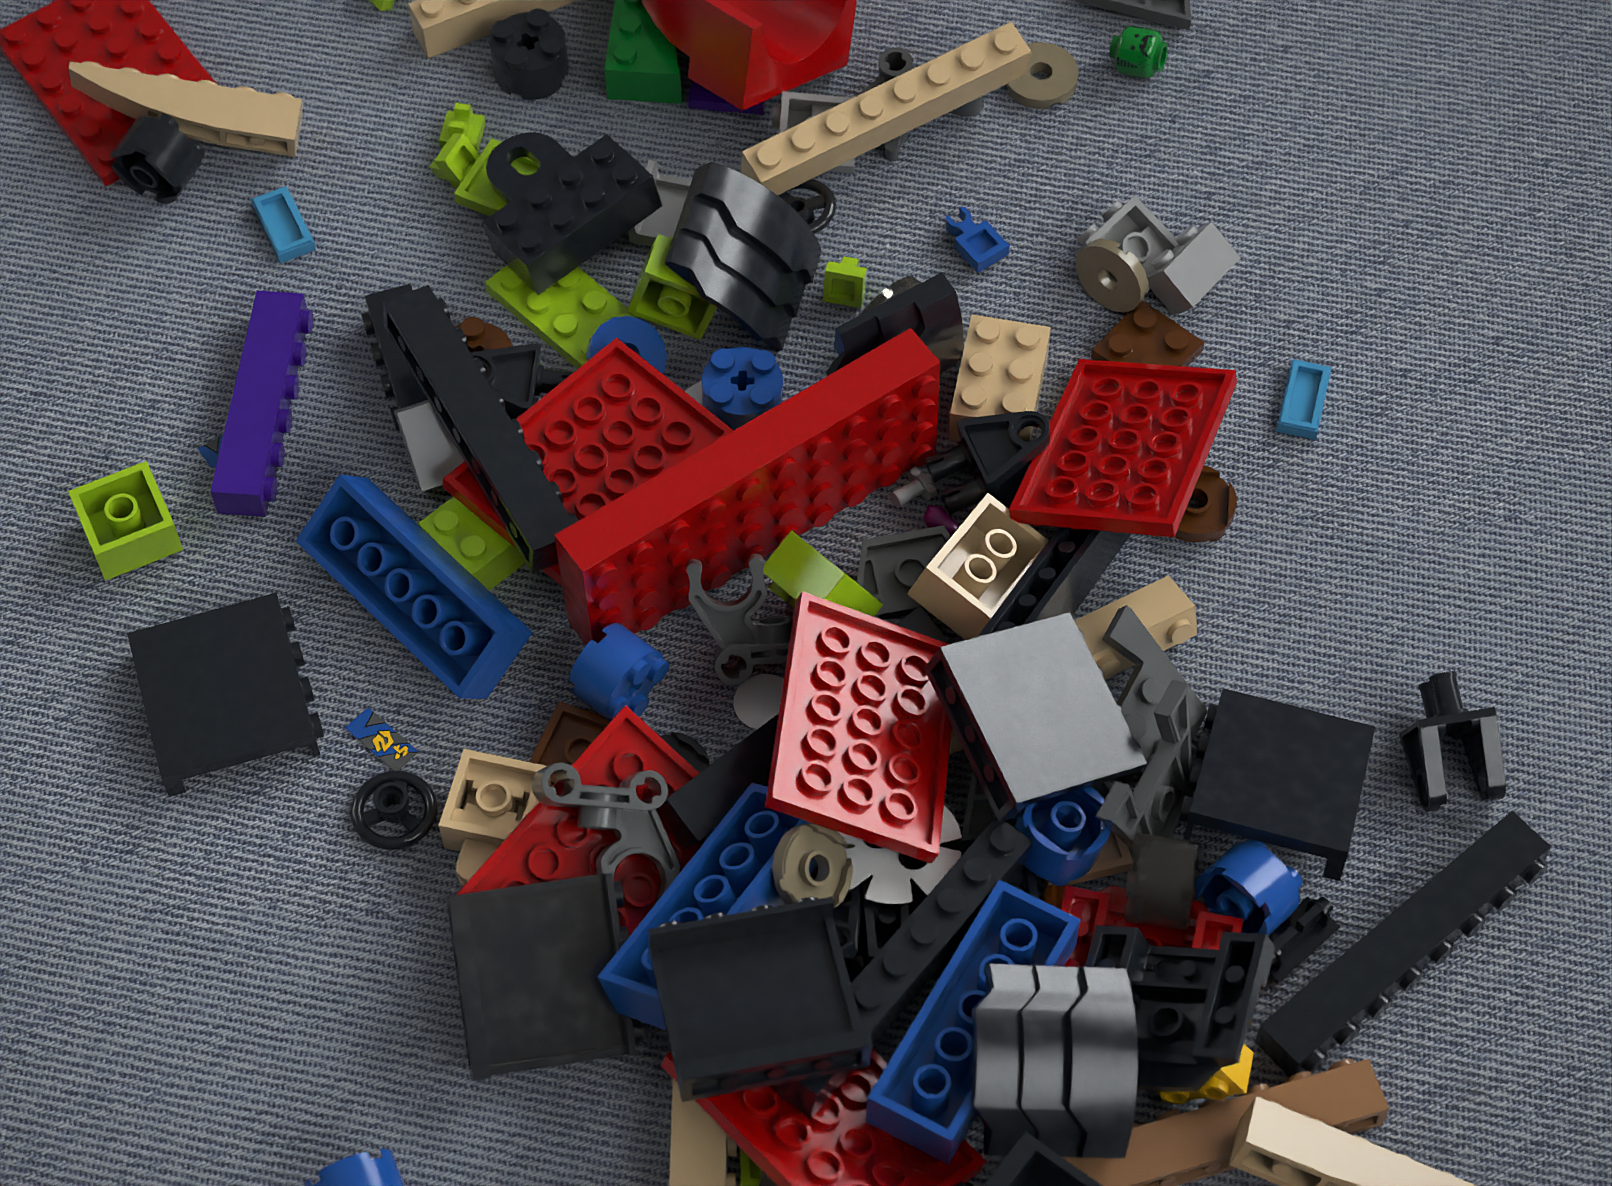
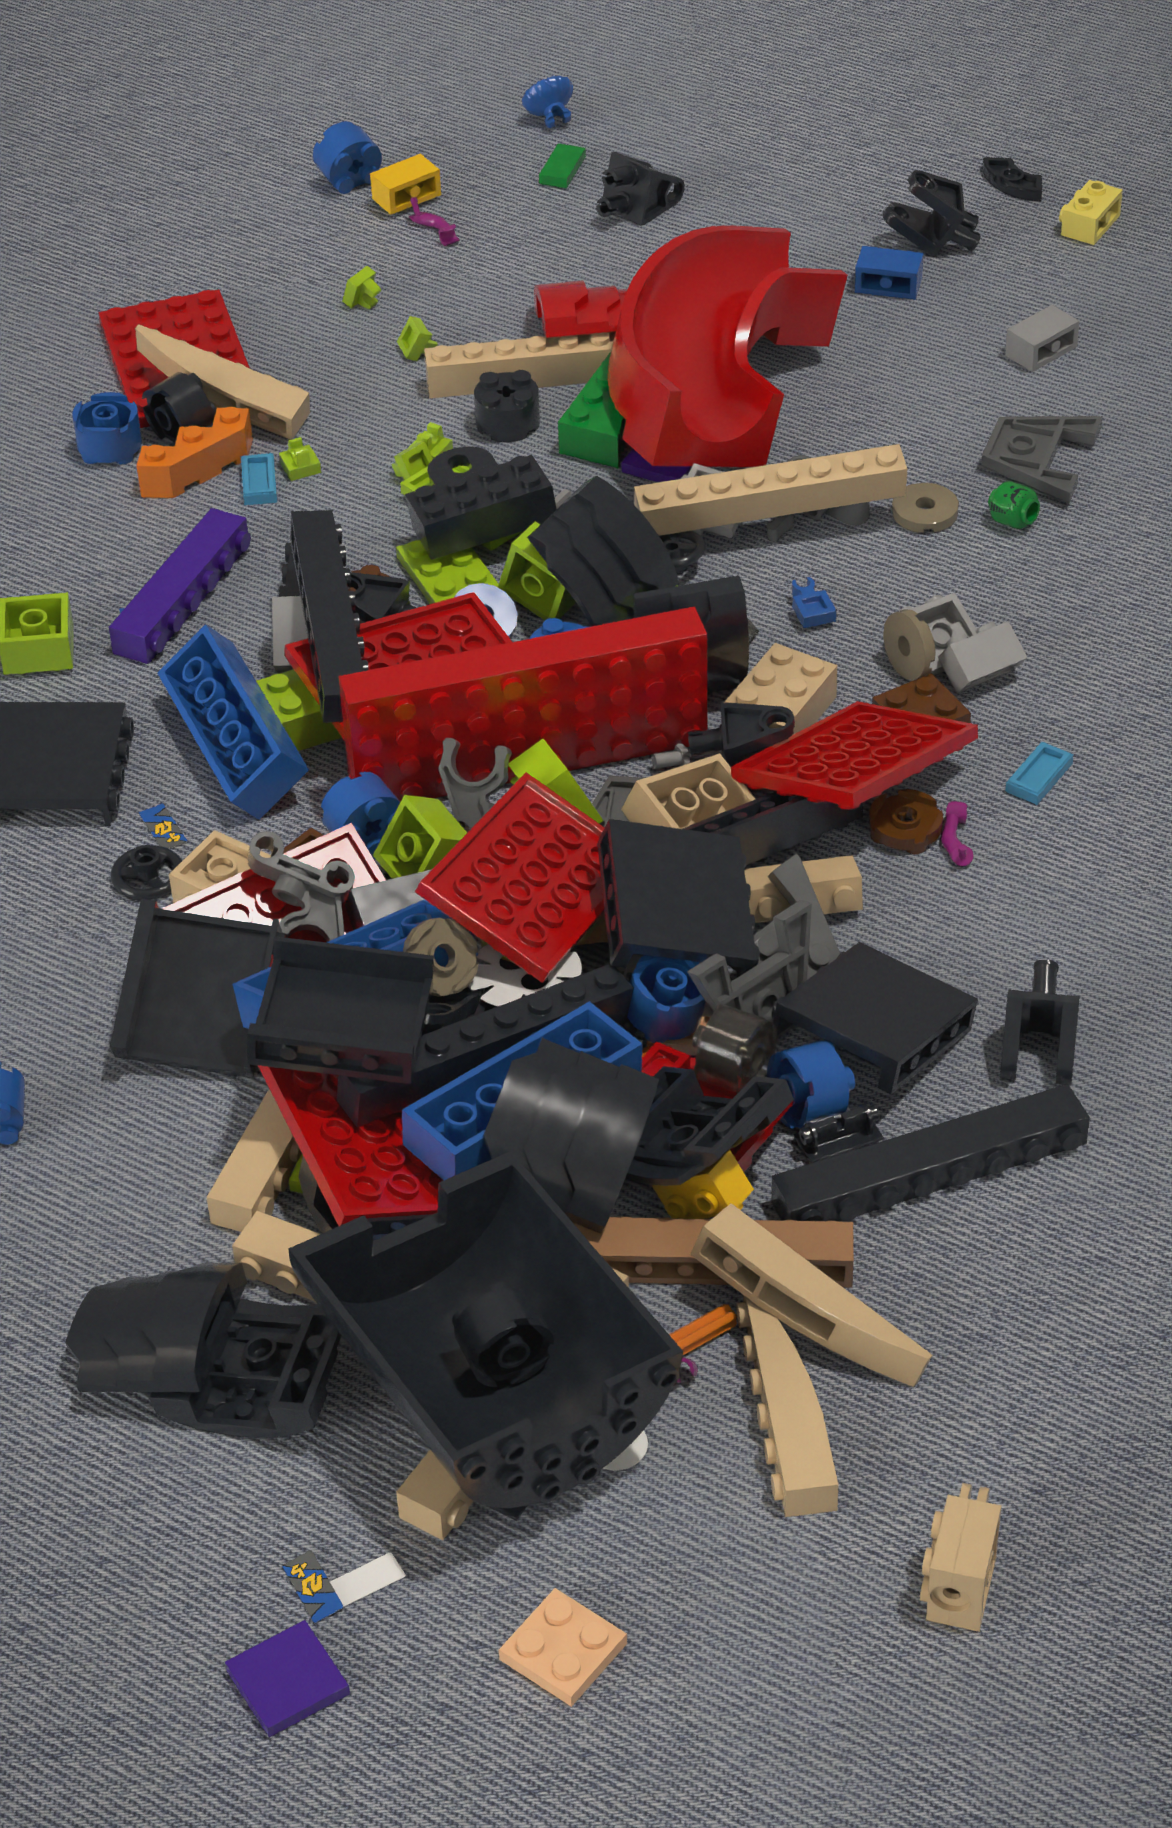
camera: 20 degrees right, 15 degrees down
(80, 204) = (107, 429): none -> blue brick
(203, 214) = (196, 454): none -> orange brick
(320, 188) = (299, 460): none -> lime tile
(706, 701) = (417, 837): none -> lime brick
(1266, 530) = (959, 853): none -> magenta piece

